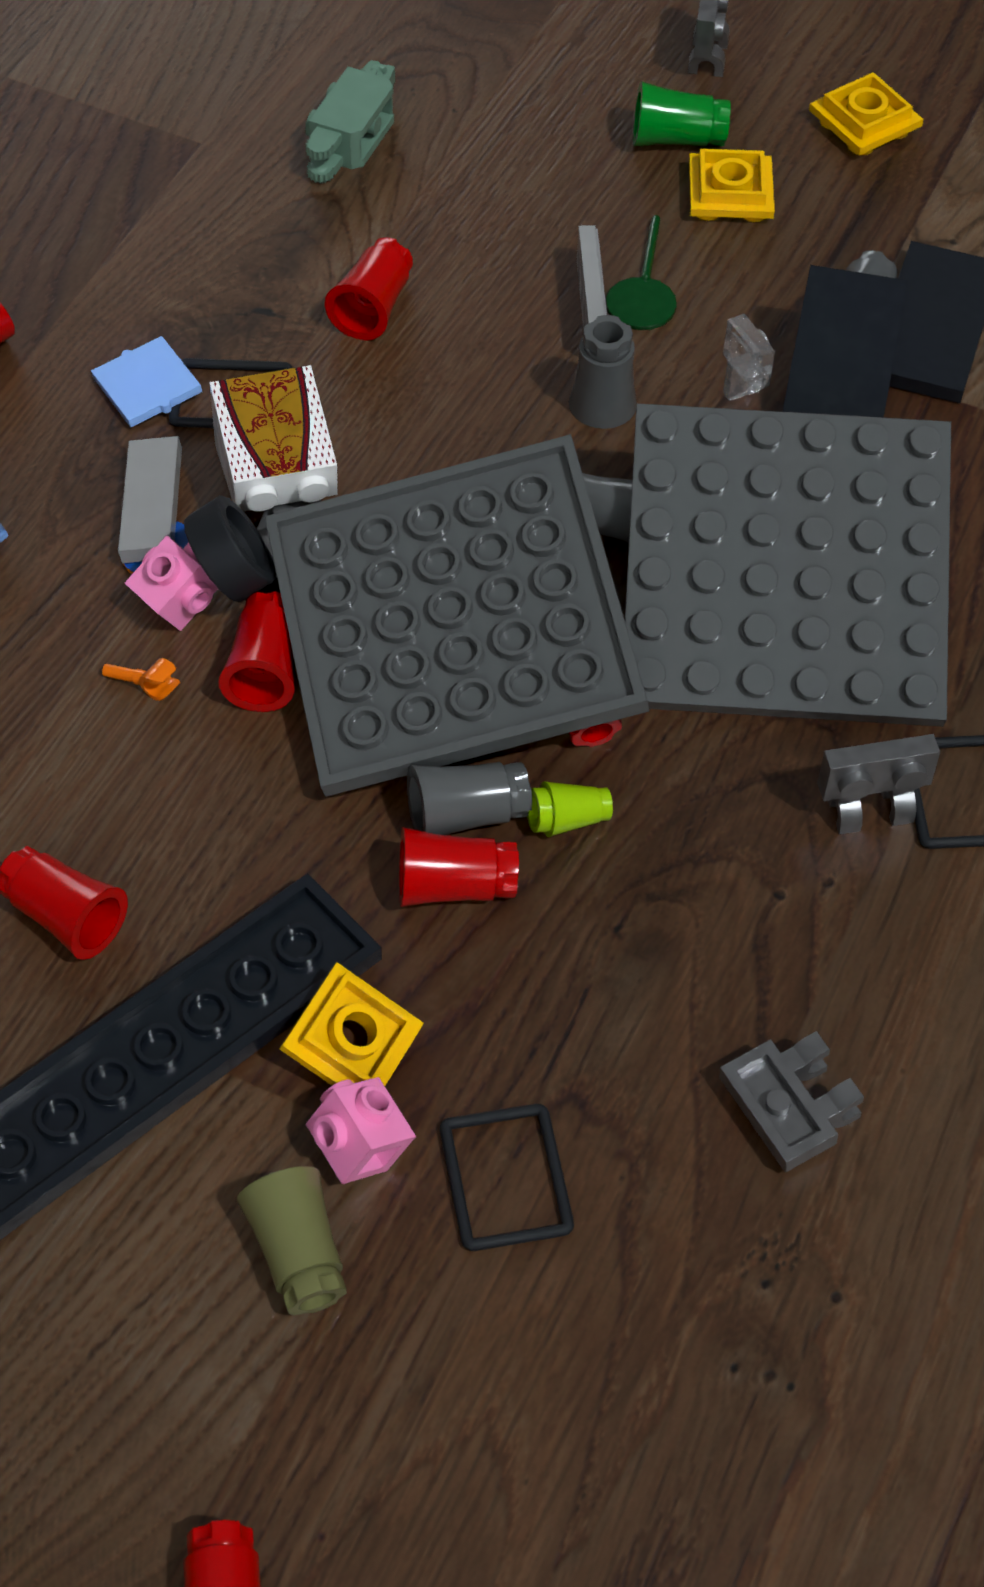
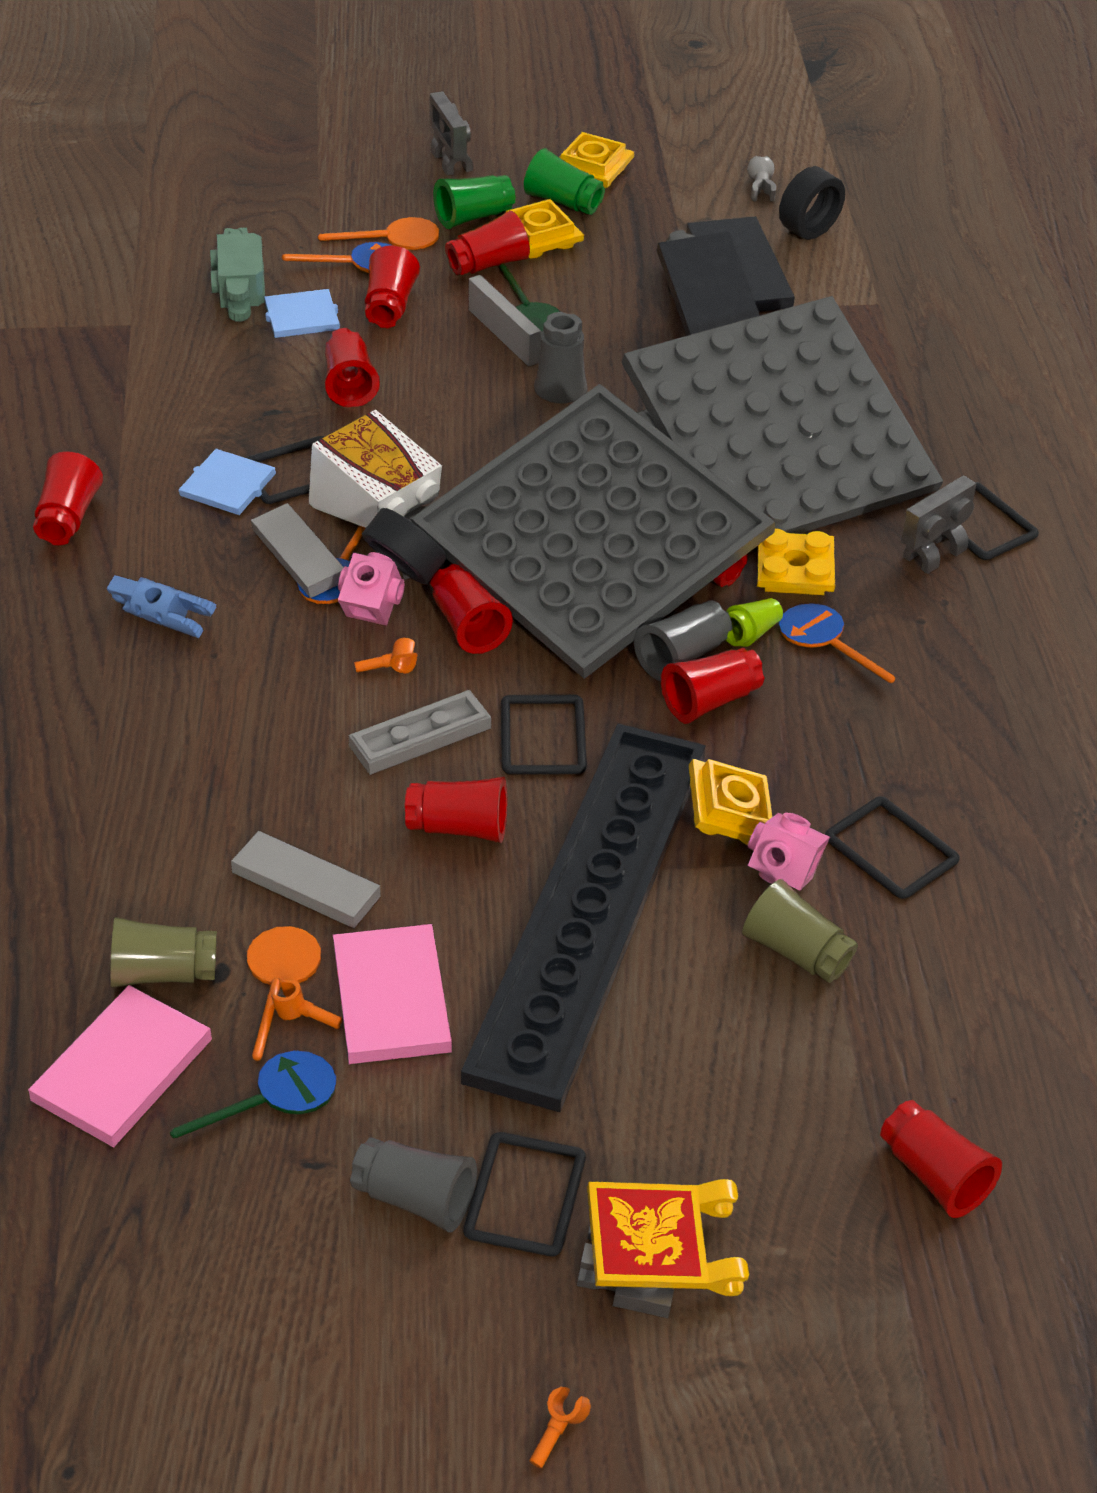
camera: 30 degrees left, 10 degrees down
(108, 781) = (419, 732): none -> light grey tile
(271, 869) = (543, 769): none -> black piece
(388, 196) = (301, 313): none -> light blue piece
(494, 200) = (389, 285): none -> red plant
(515, 154) = (359, 256): none -> piece
(578, 136) = (407, 233): none -> orange piece
(645, 187) = (489, 245): none -> red plant
(645, 845) = (818, 626): none -> blue piece
(674, 728) = (797, 563): none -> yellow piece
(748, 358) = (640, 320): clear bracket -> none
(779, 1105) = (1028, 729): flat silver plate -> none
(797, 133) = (562, 183): none -> green plant

